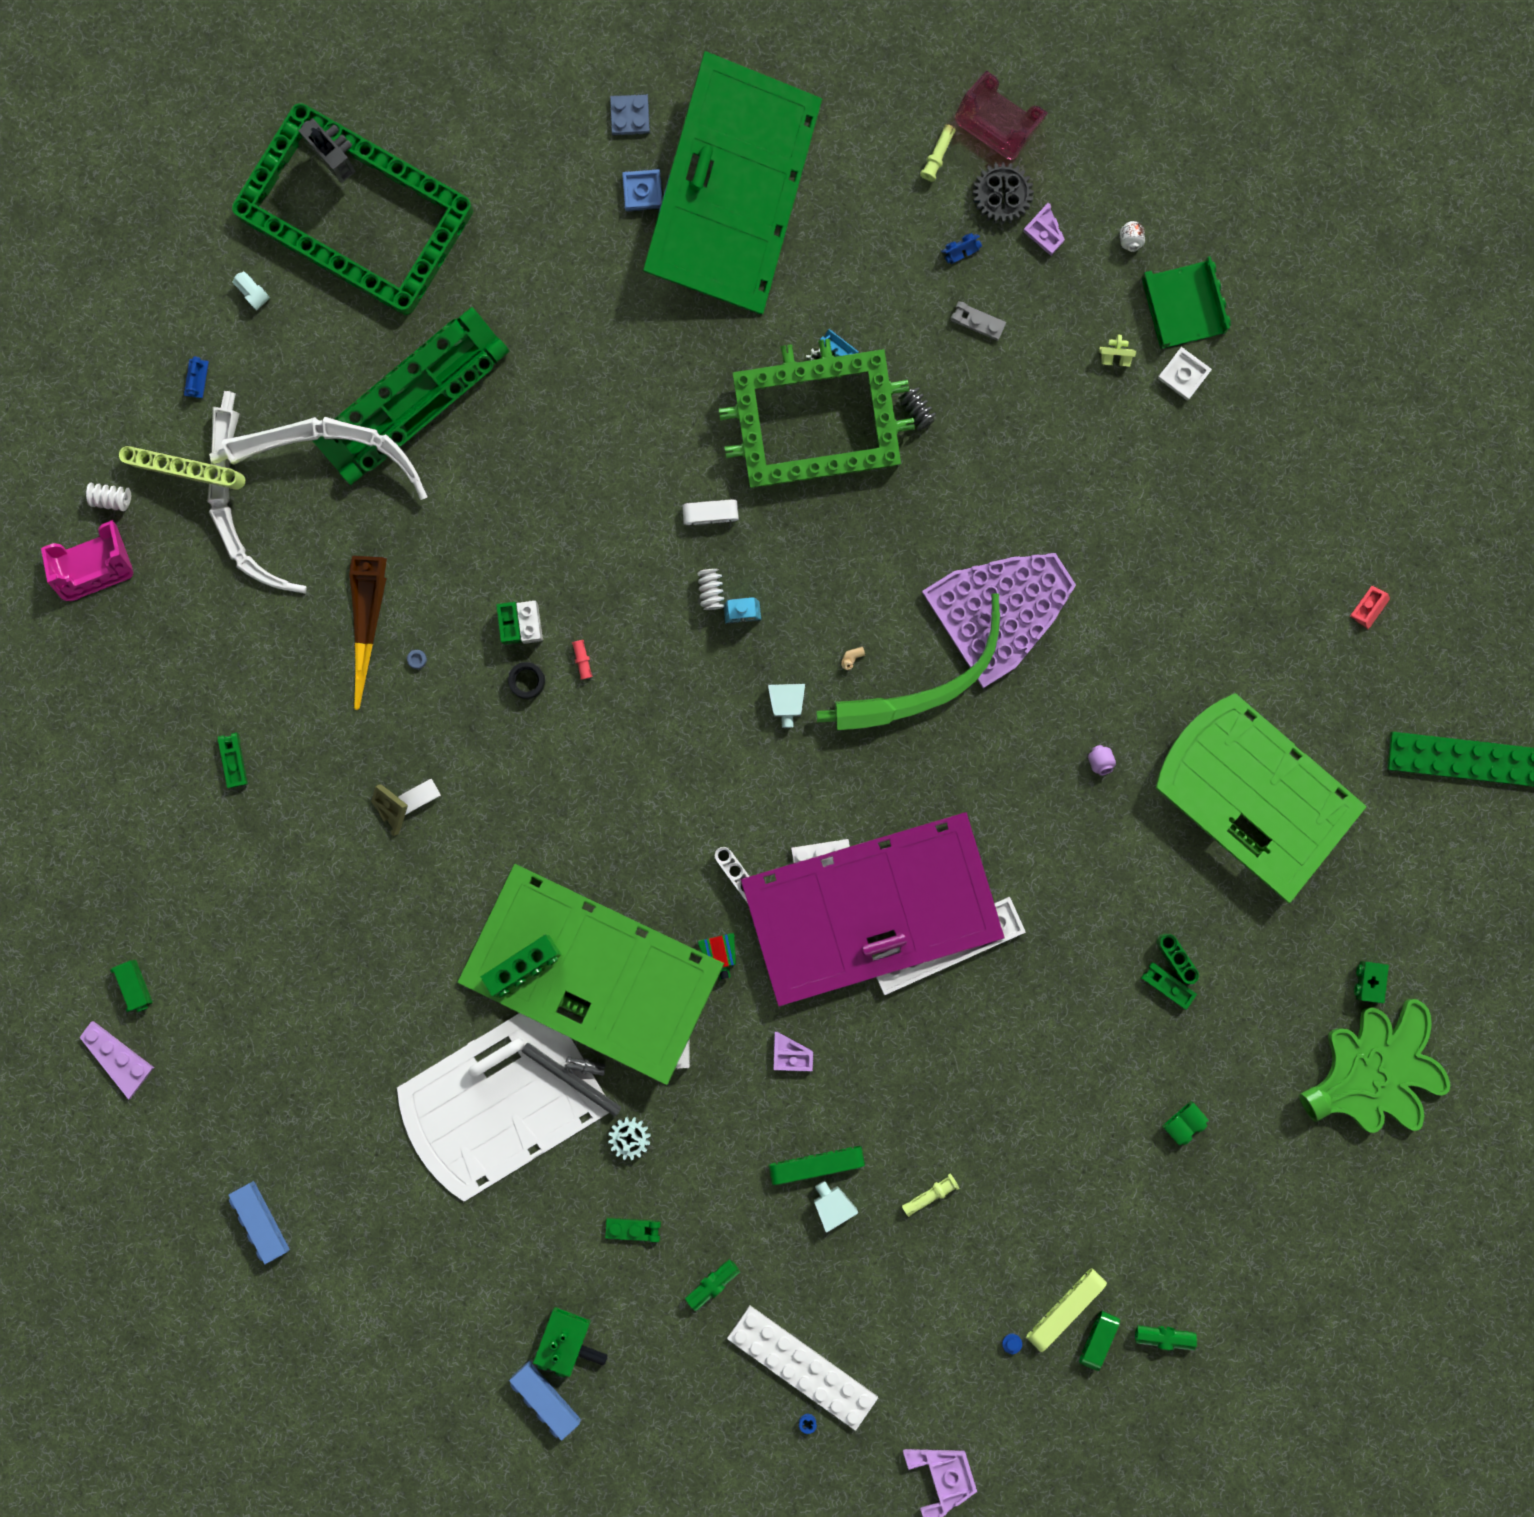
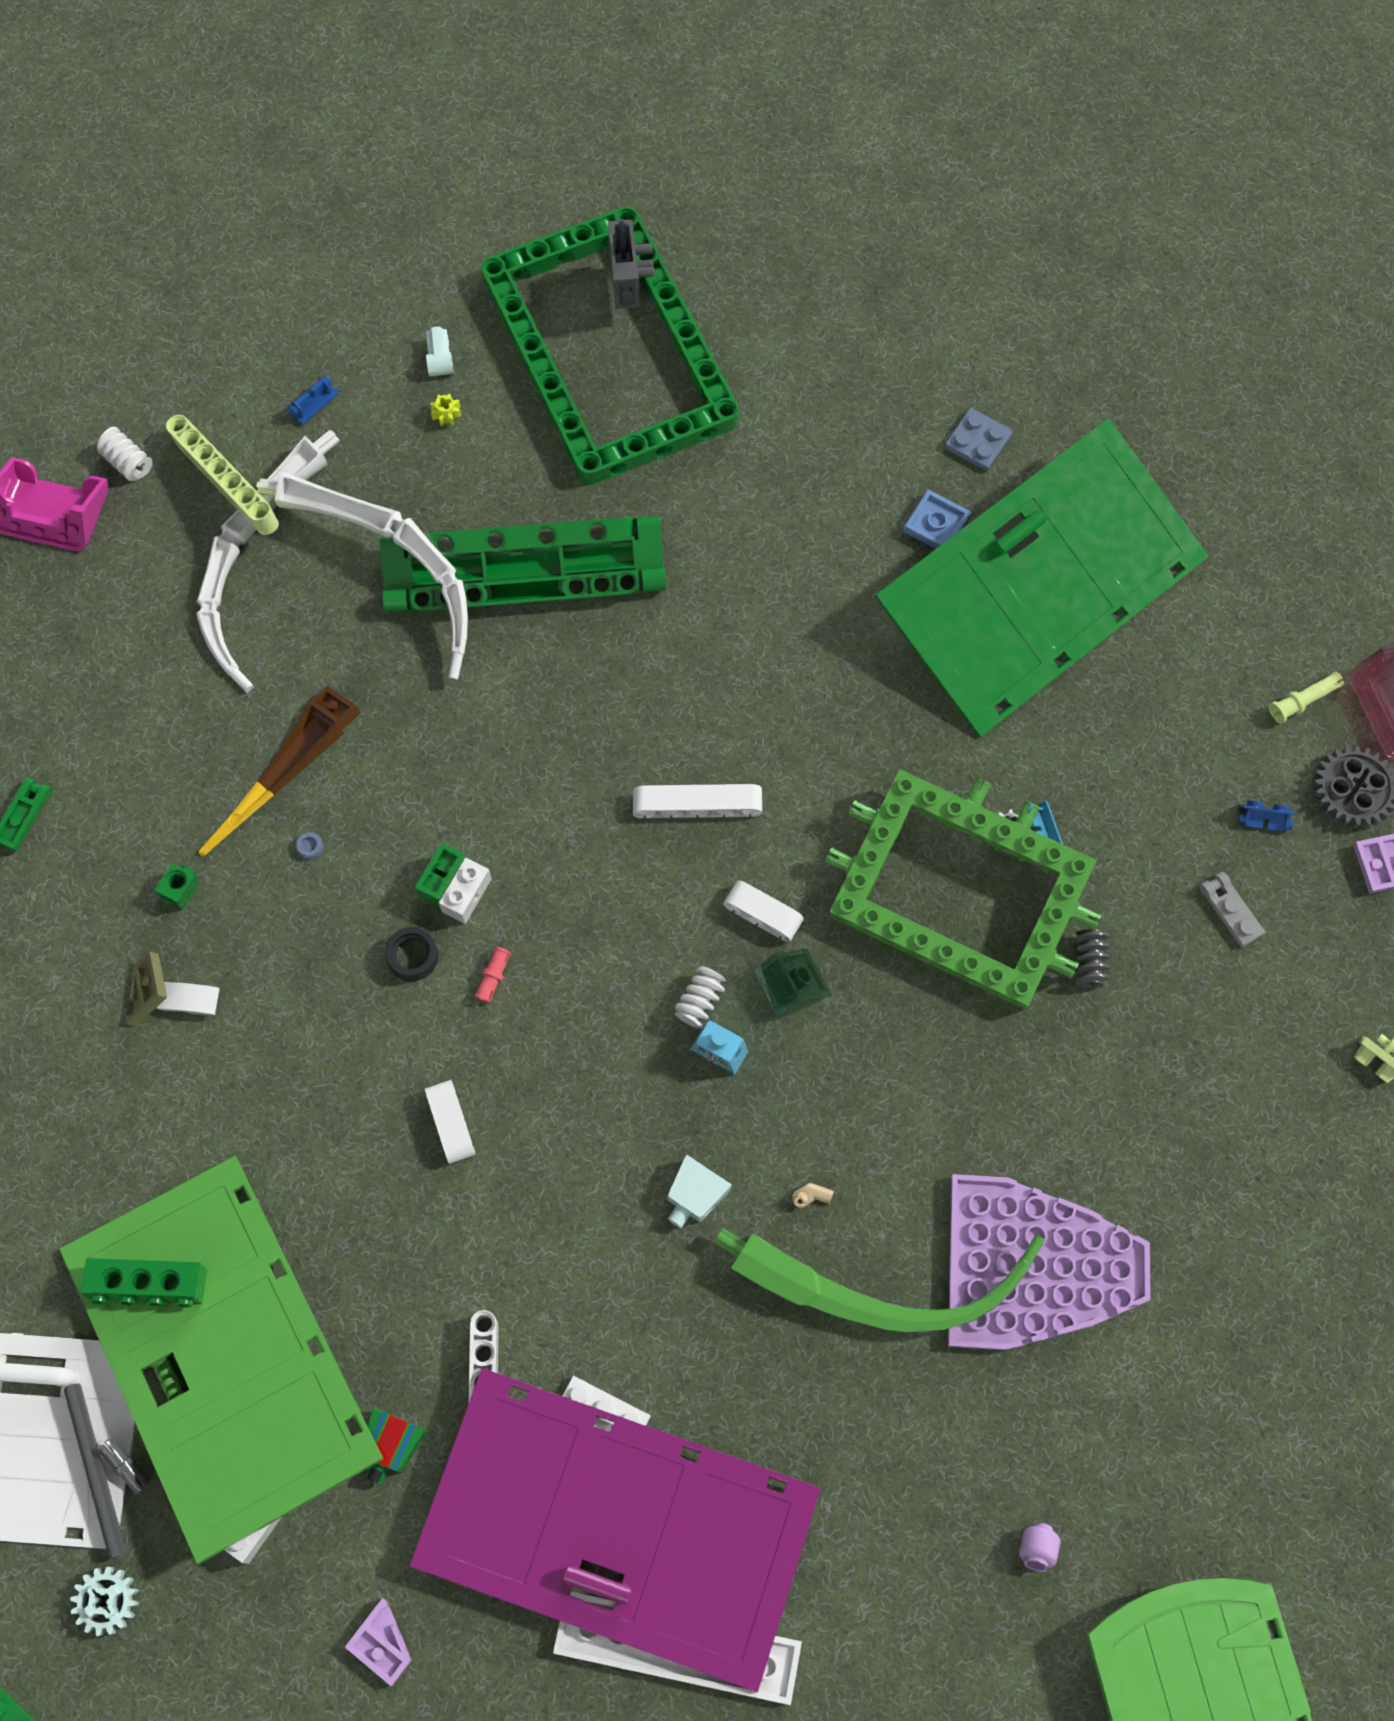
camera: 30 degrees right, 15 degrees down
(285, 331) = (445, 416): none -> neon yellow gear
(365, 743) = (180, 896): none -> green brick
(621, 759) = (450, 1121): none -> white beam
(624, 471) = (700, 800): none -> white beam
(756, 543) = (791, 981): none -> clear green slope

